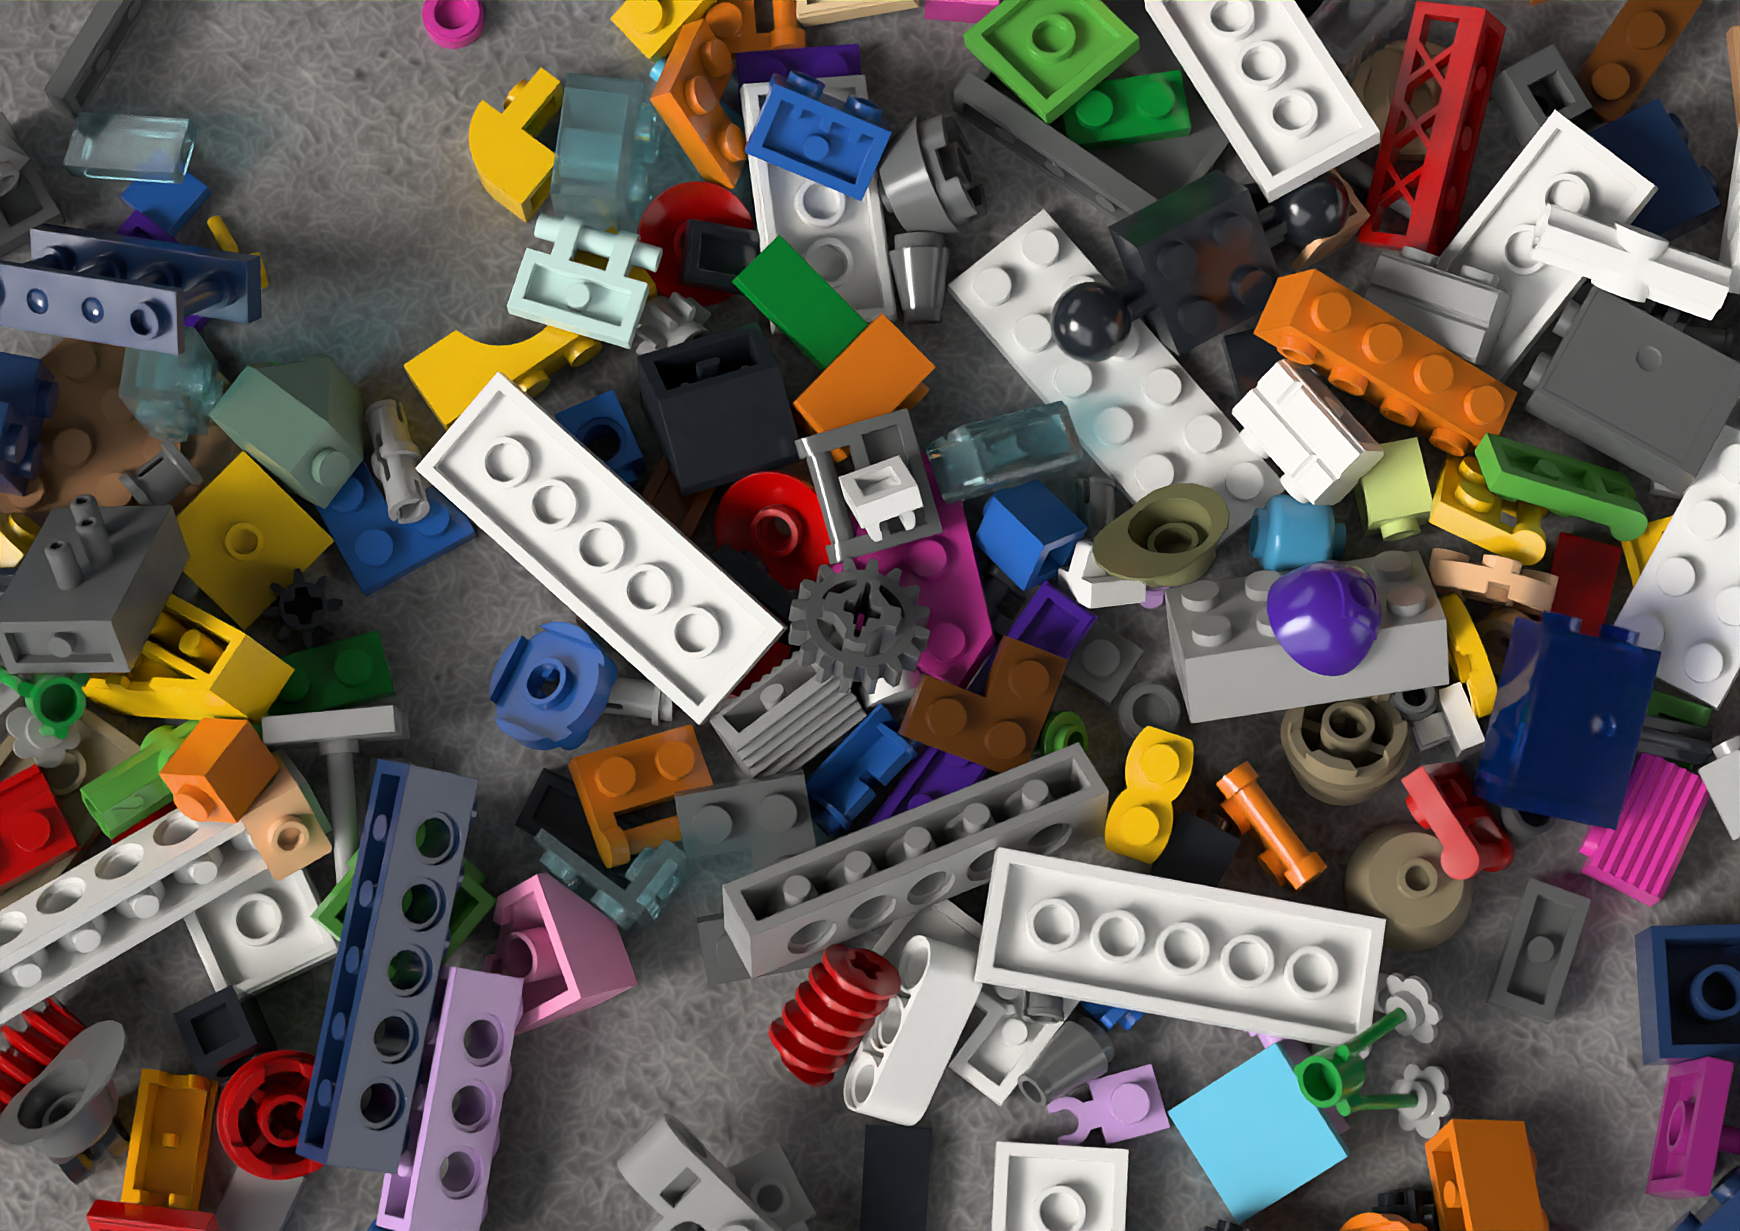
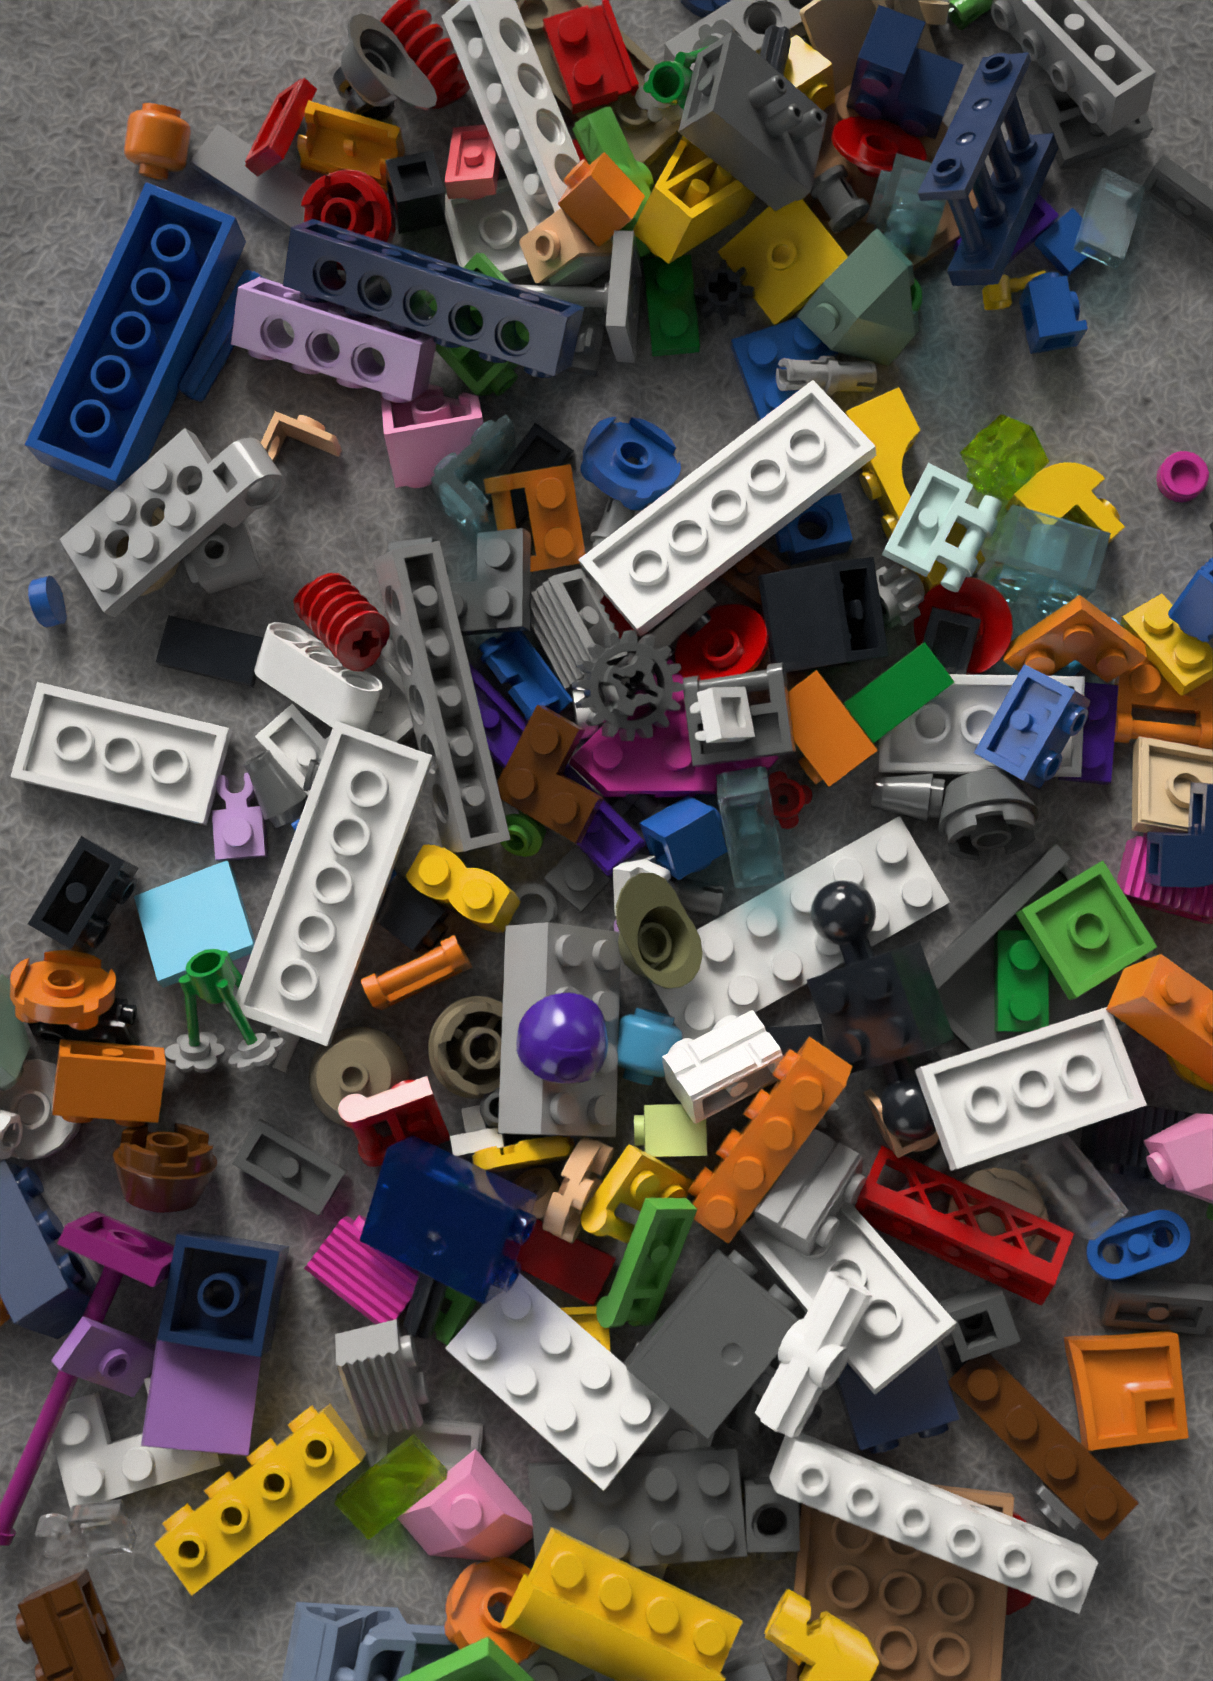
camera: 100 degrees right, 5 degrees up
(85, 438) = (874, 144): none -> red dish
(172, 966) = (471, 164): none -> coral plate
(267, 201) = (1051, 314): none -> blue brick
(472, 227) = (1003, 457): none -> clear neon green brick
(575, 1125) = (303, 429): none -> light nougat bracket
(946, 412) = (797, 797): none -> red plate
(1576, 1101) = (164, 1168): none -> reddish brown cone

